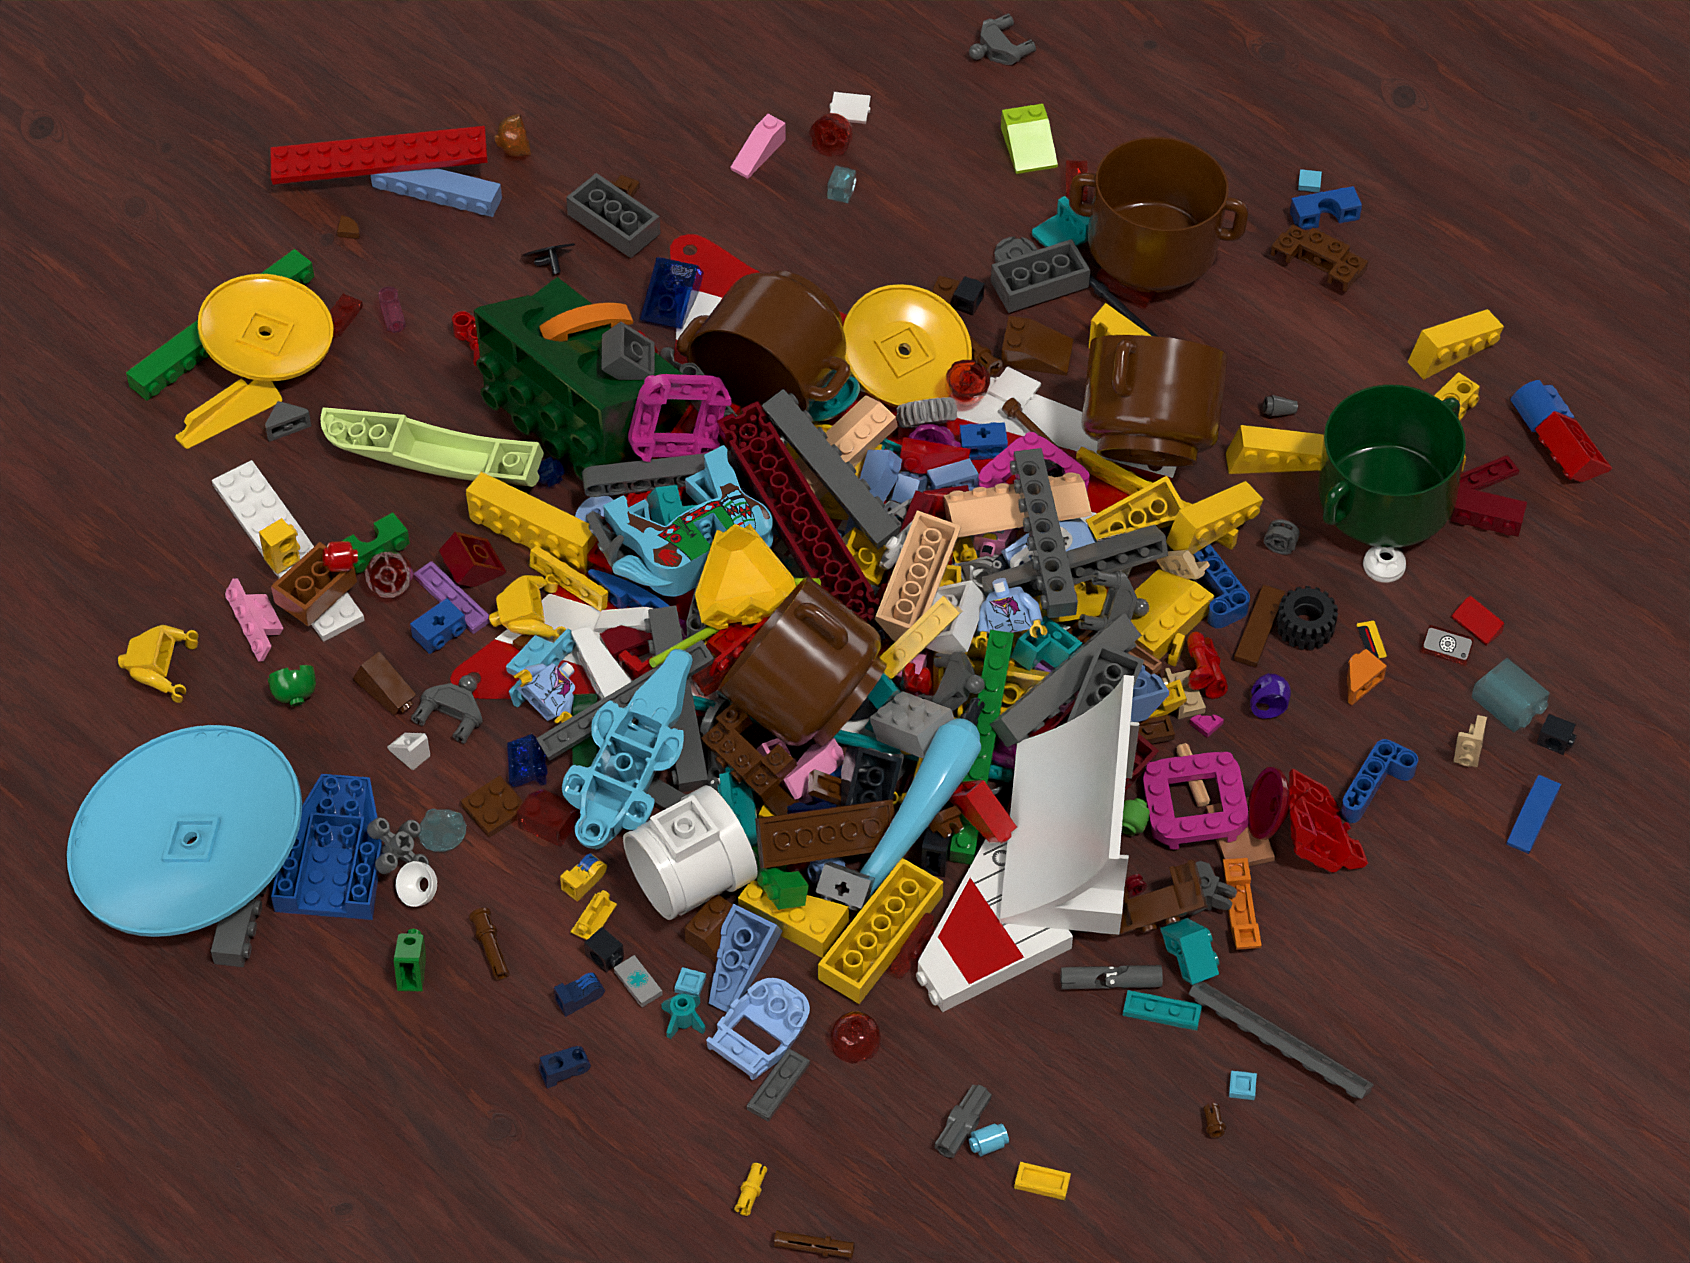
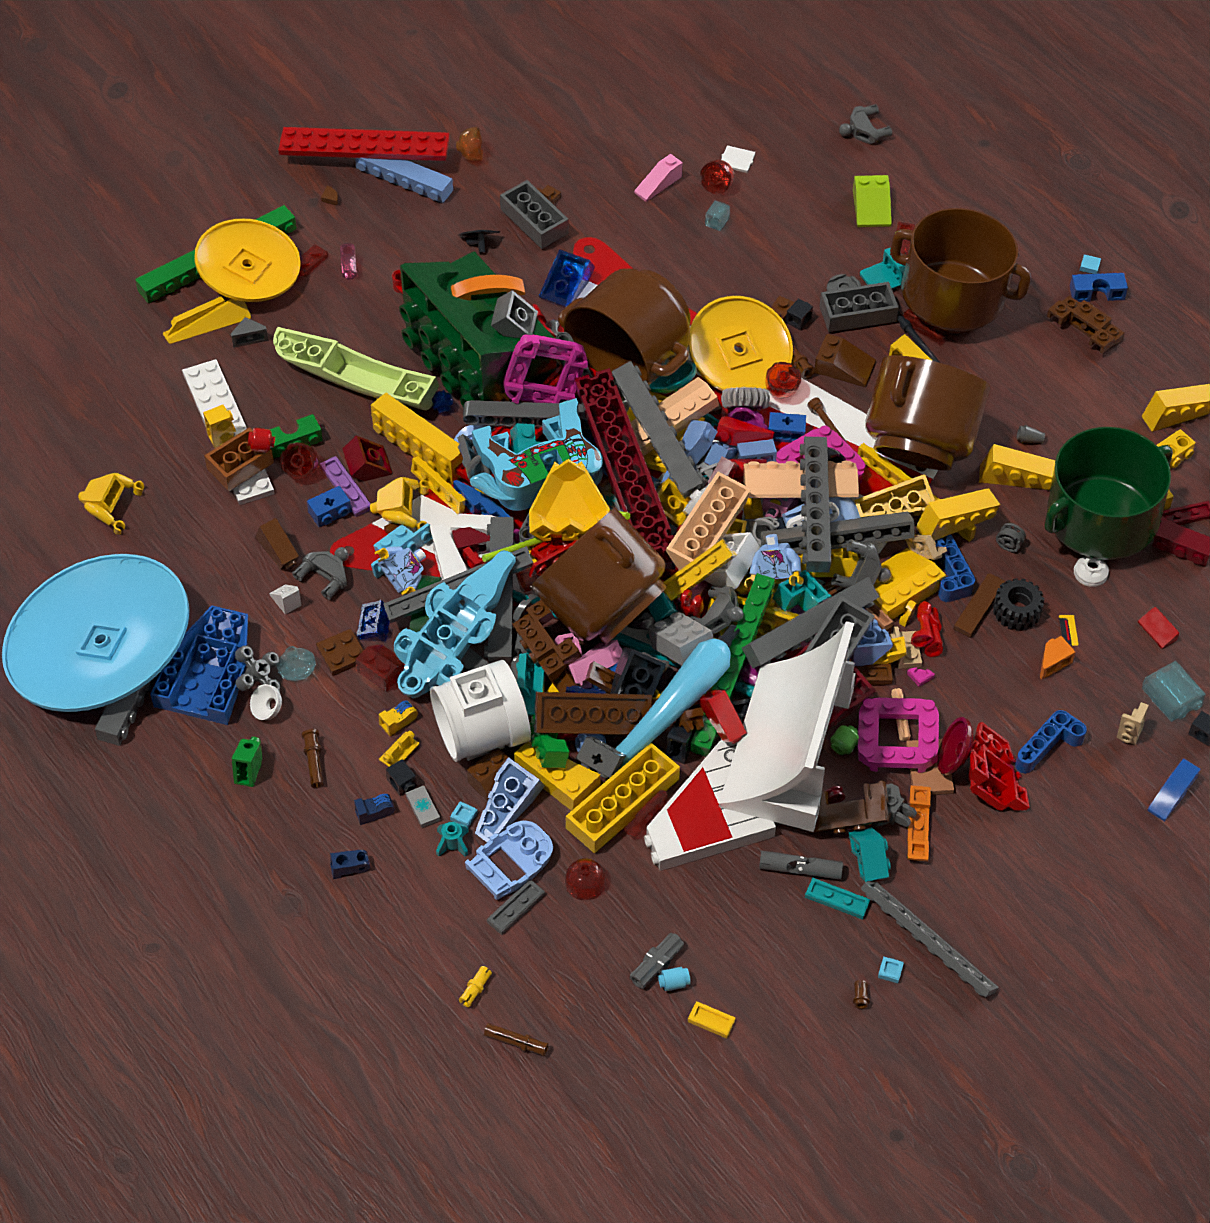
camera: 10 degrees right, 0 degrees up
(255, 617) = (191, 478): bright pink bracket -> none
(293, 685) = (206, 534): green cylinder -> none
(1014, 385) = (821, 388): white piece -> none
(1272, 691) = (979, 658): dark purple helmet -> none
(1447, 645) = (1129, 643): slope -> none

